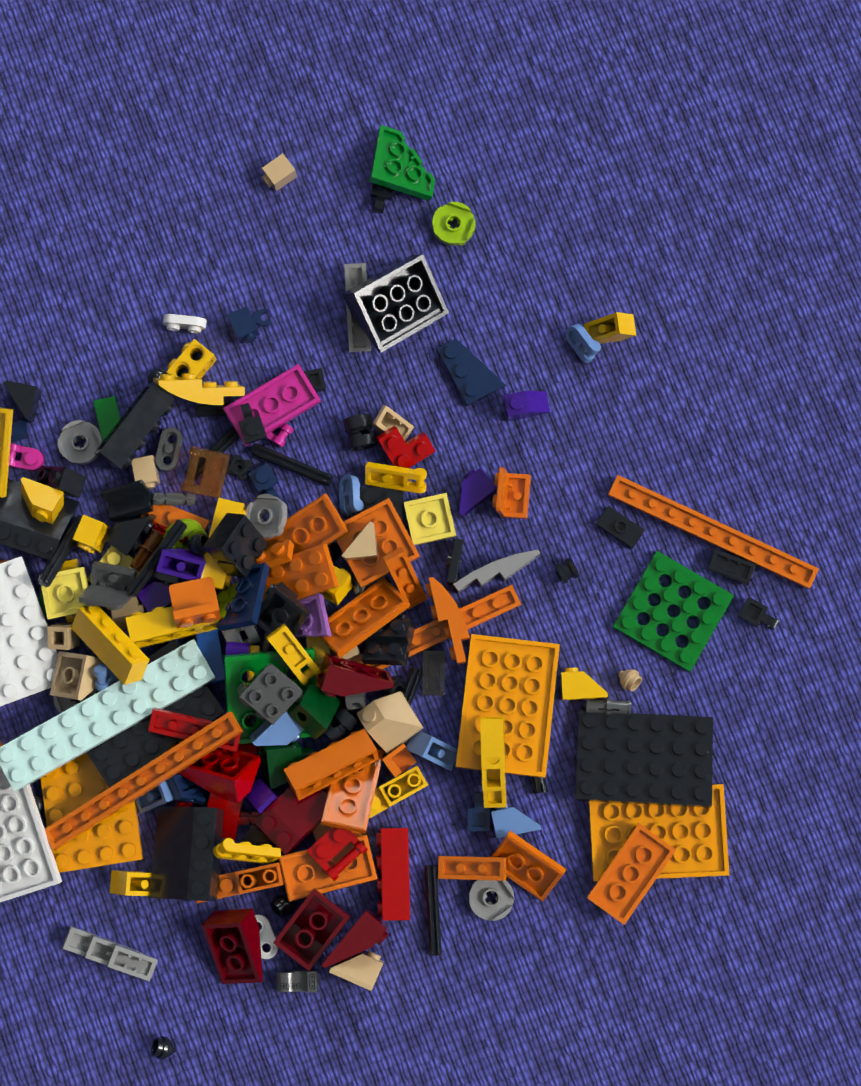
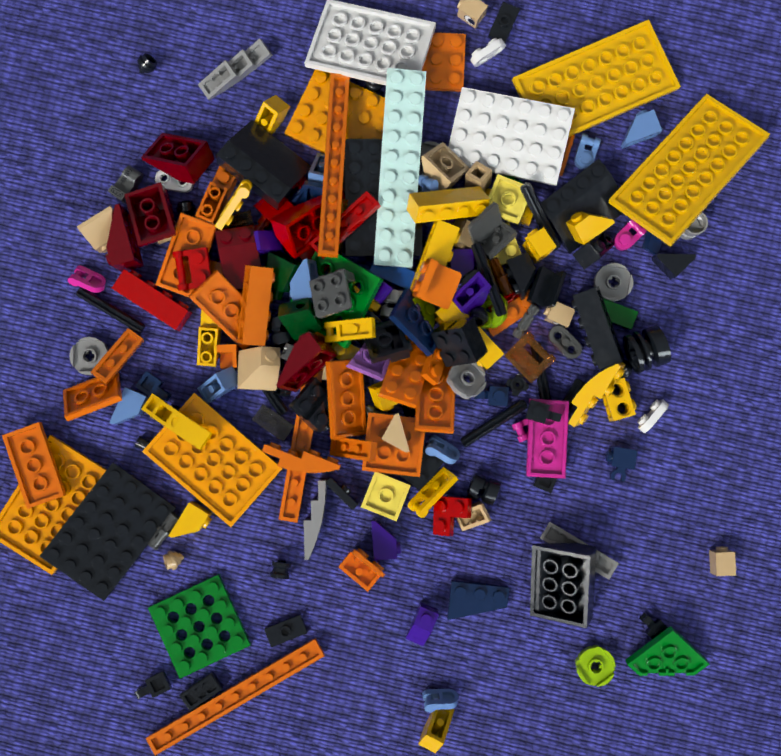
camera: 120 degrees right, 5 degrees up
(125, 368) = (647, 349): none -> black wheel
(417, 943) = (94, 281): none -> dark pink plate

